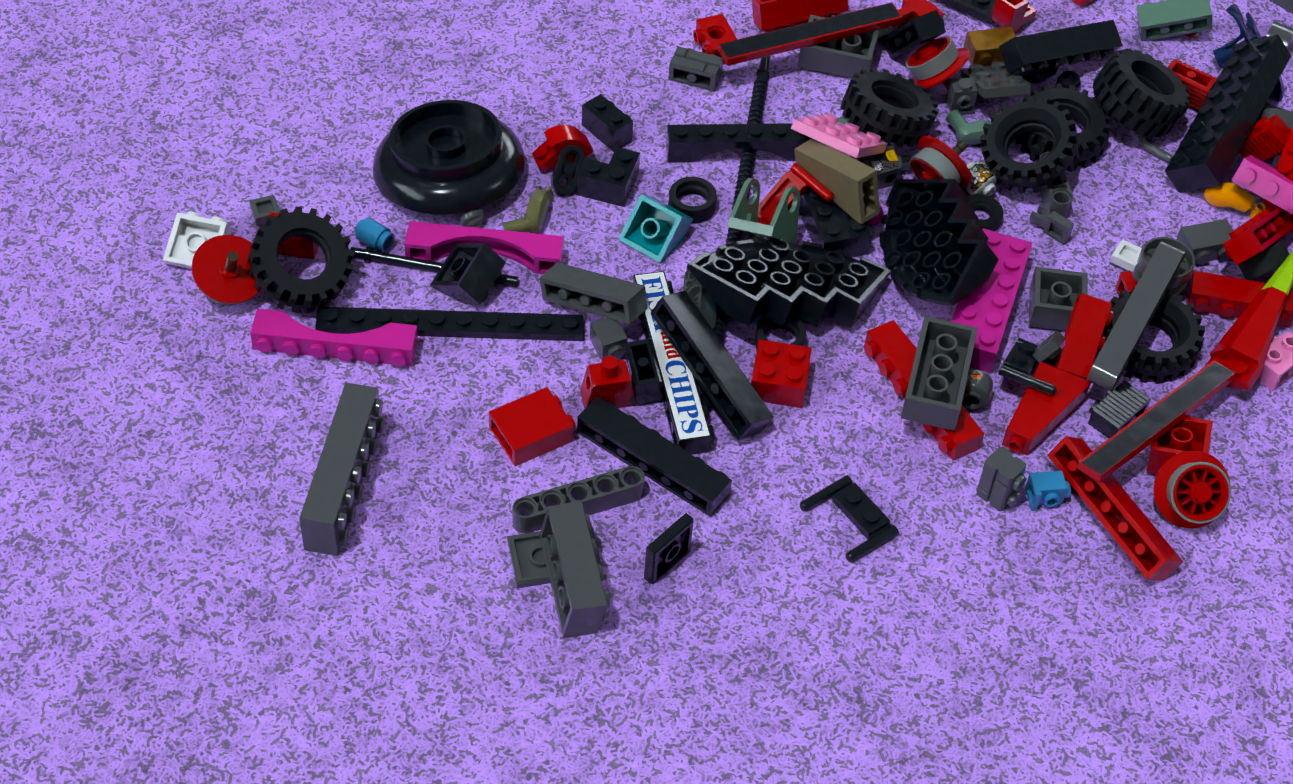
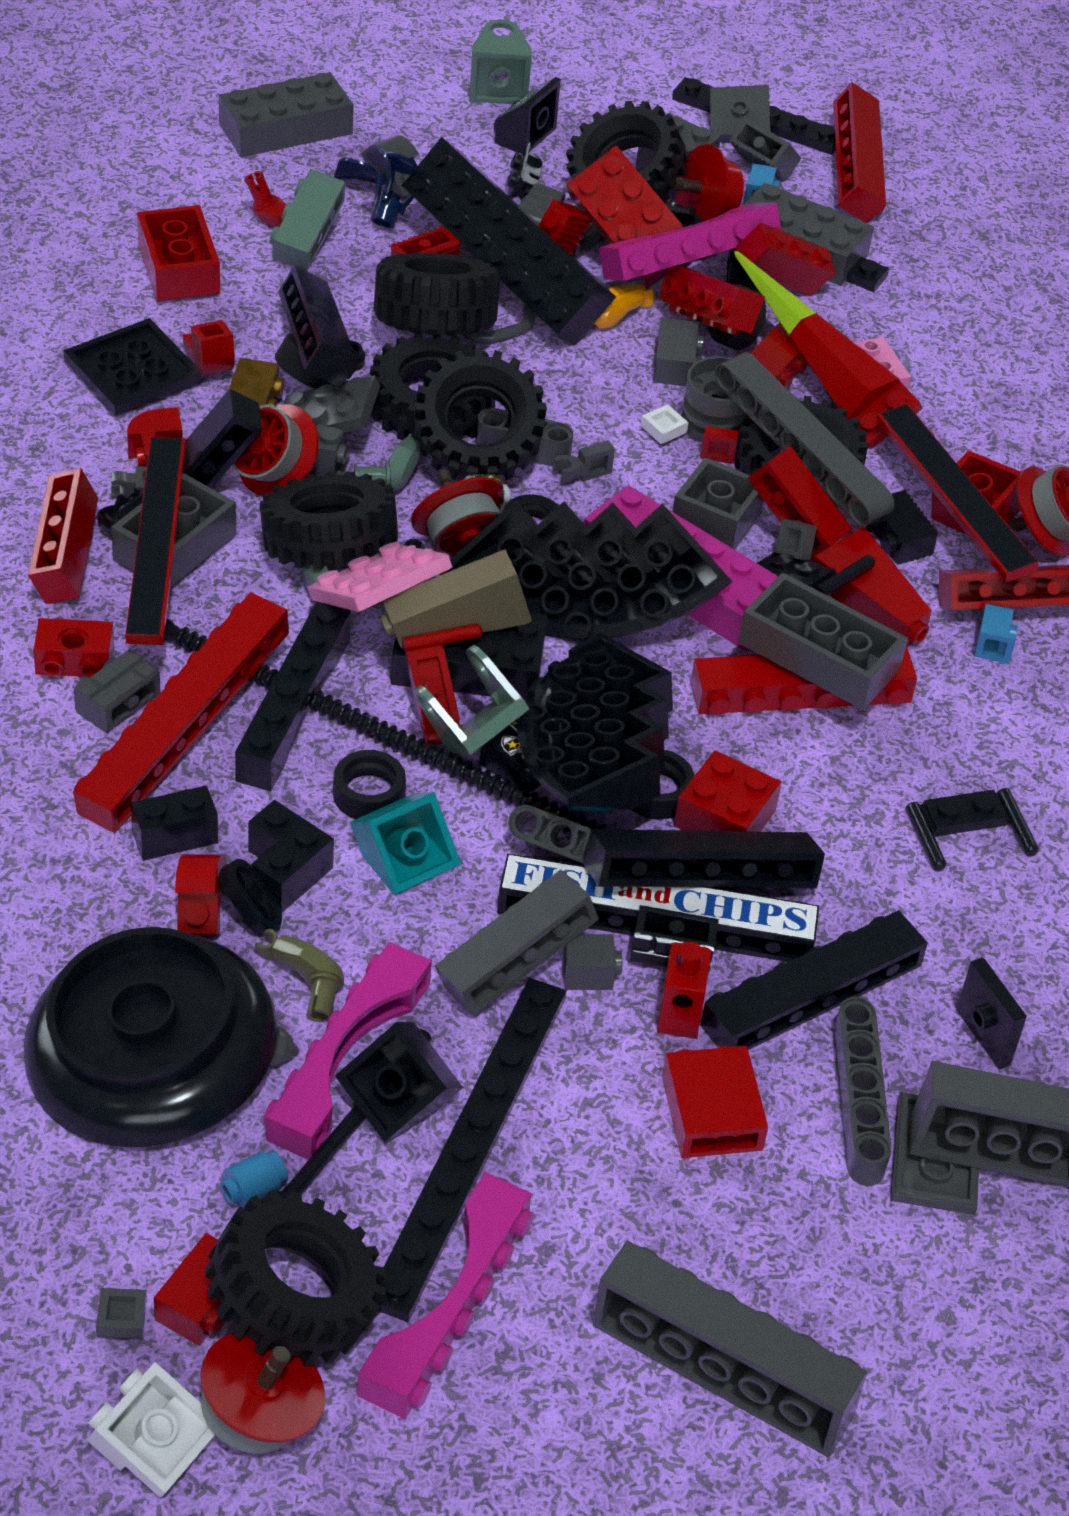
camera: 70 degrees left, 5 degrees down
(695, 96) = (181, 712): none -> red brick
(1002, 479) = (982, 659): dark grey brick -> none

